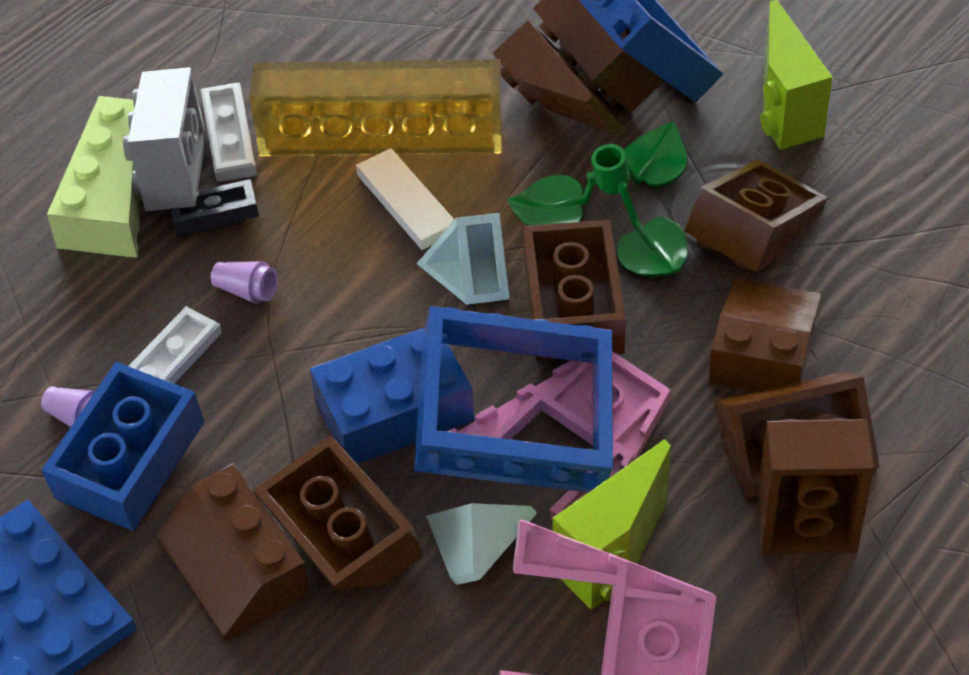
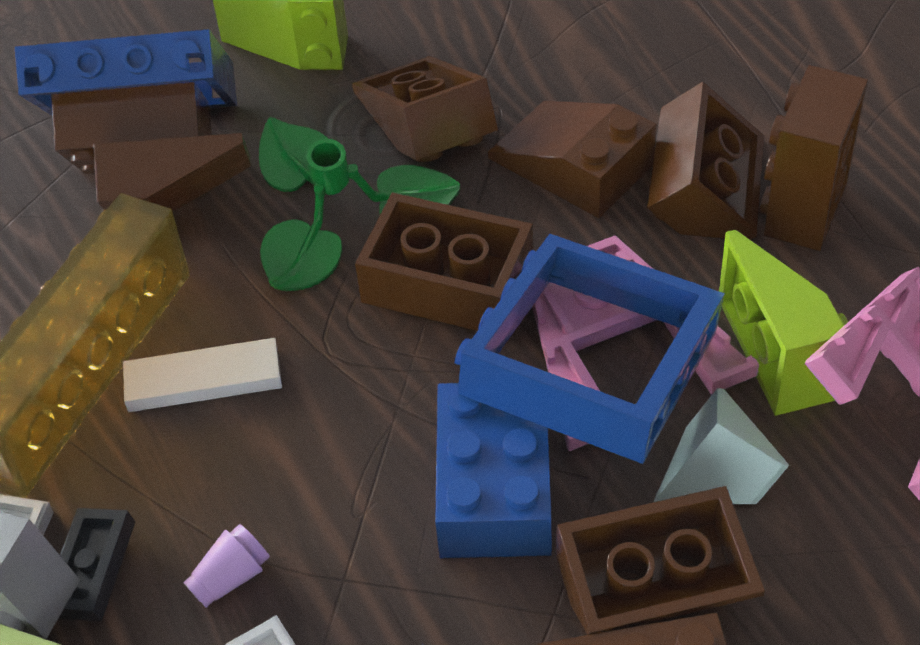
camera: 65 degrees left, 0 degrees up
(470, 259) = (343, 340): light aqua slope -> none

